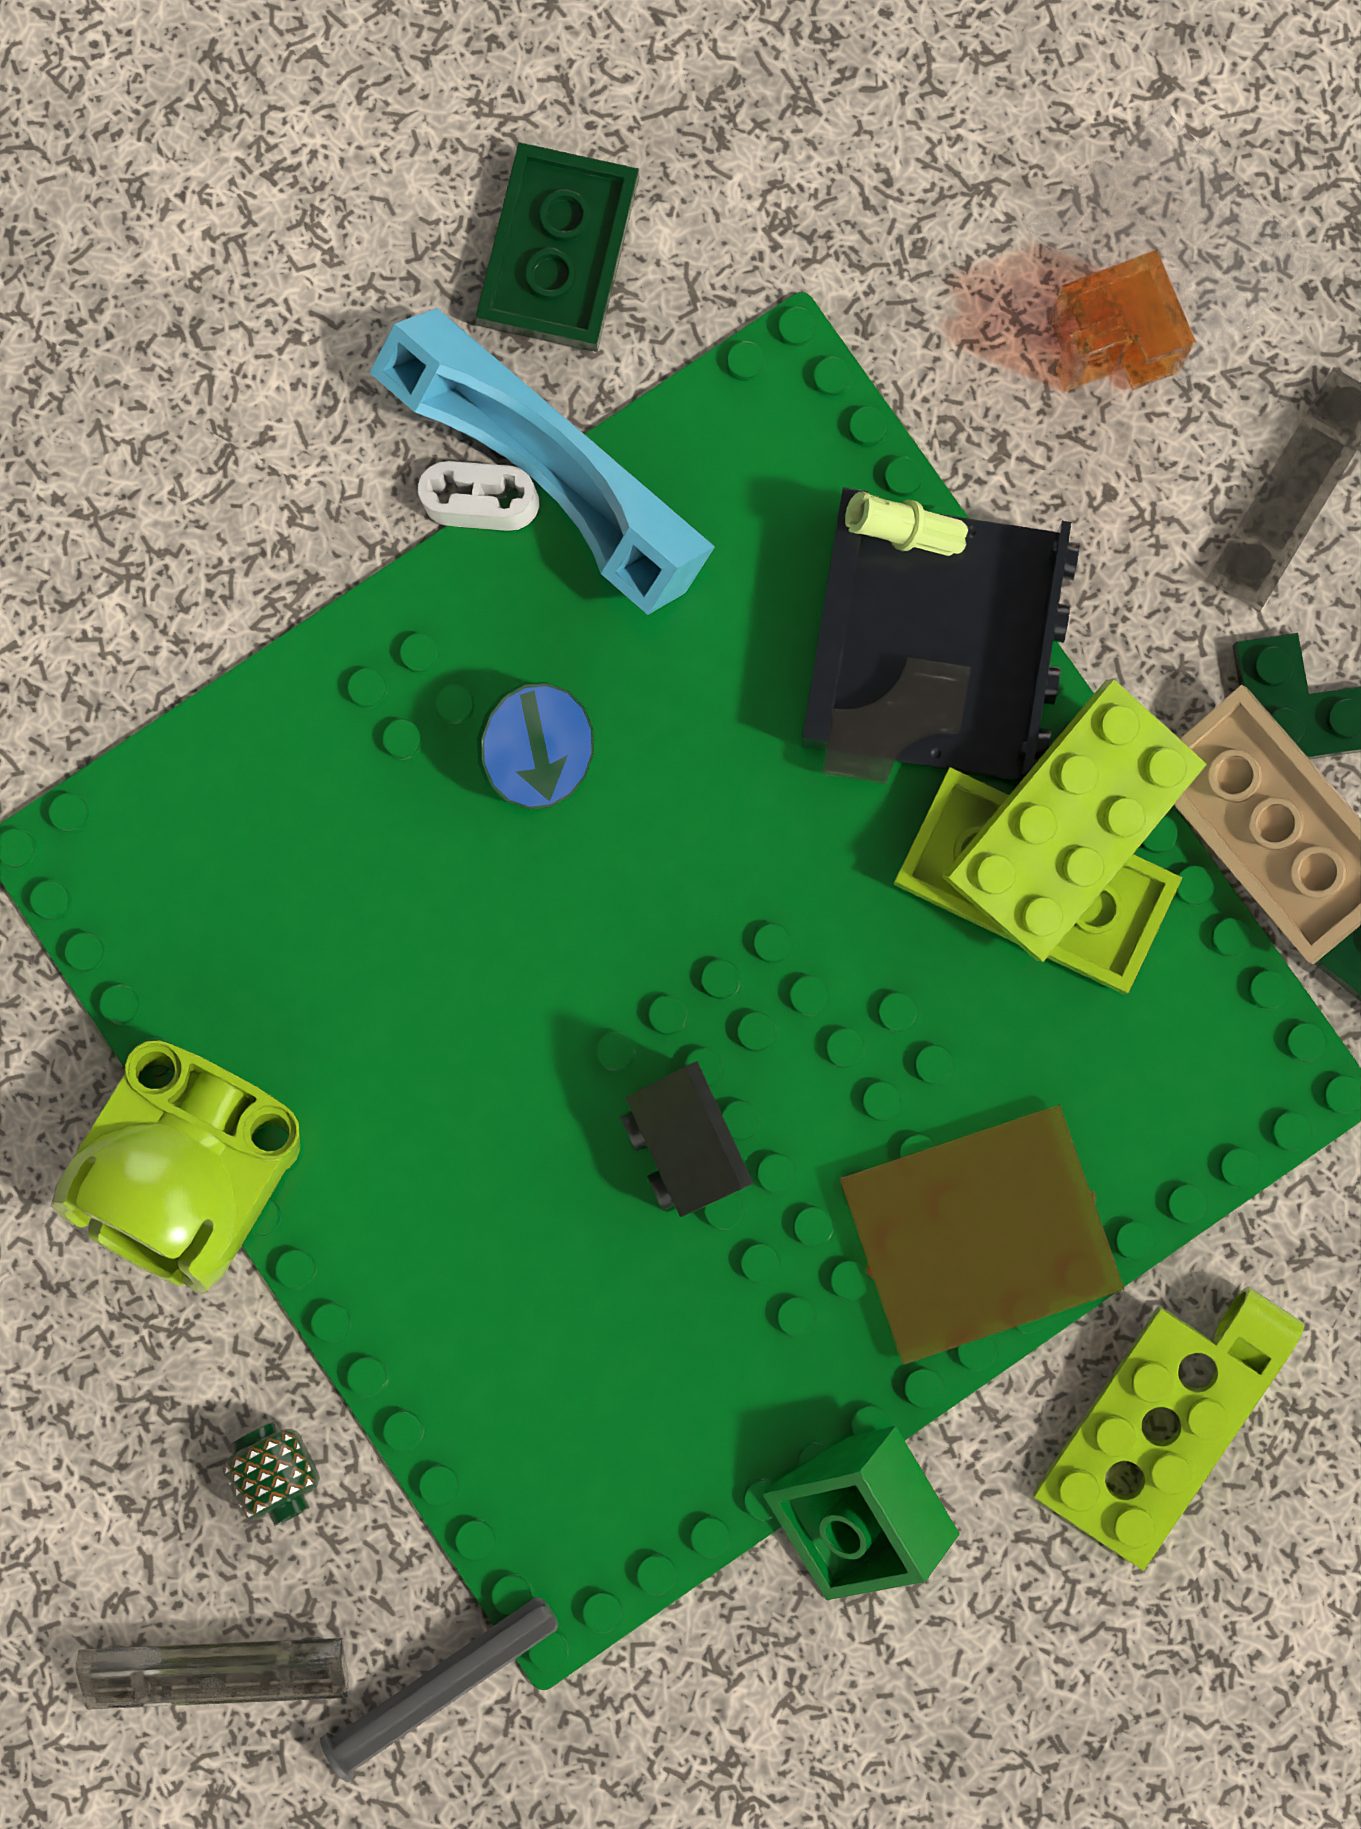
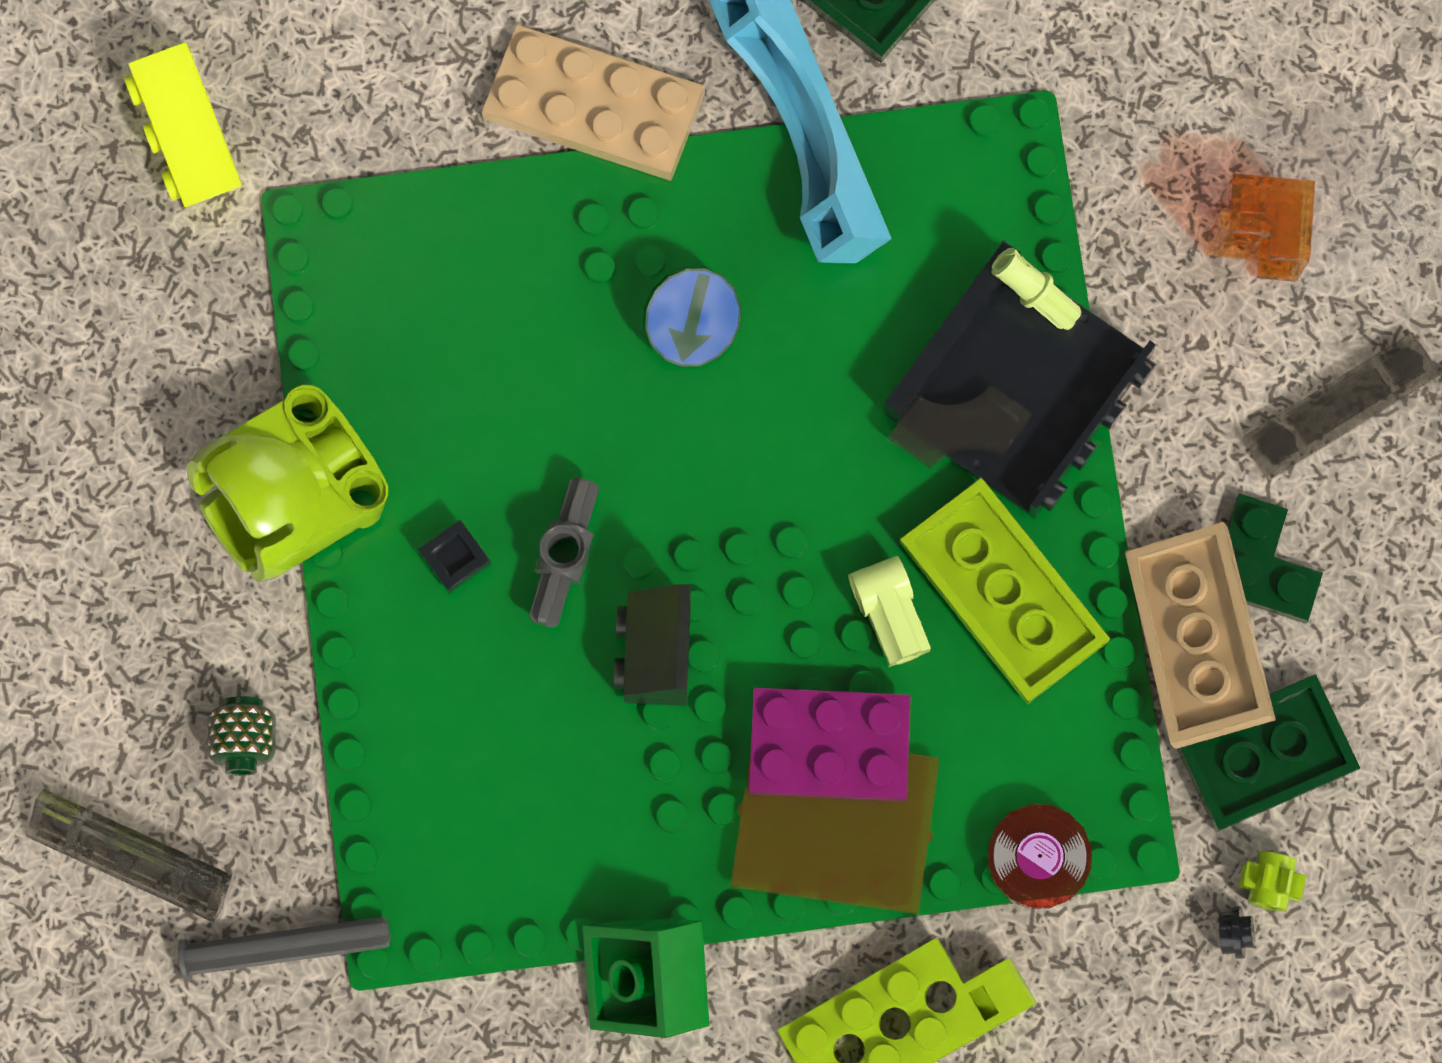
camera: 25 degrees right, 5 degrees down
(298, 554) = (593, 102): none -> tan plate
(407, 1150) = (454, 556): none -> black plate
(479, 490) = (740, 126): white beam -> none
(535, 1119) = (558, 577): none -> dark grey axle
(910, 955) = (885, 597): none -> yellowish green piece
(933, 1152) = (830, 744): none -> magenta plate
(1074, 820) = (1050, 556): lime plate -> none
(1225, 1159) = (1039, 856): none -> clear red tile

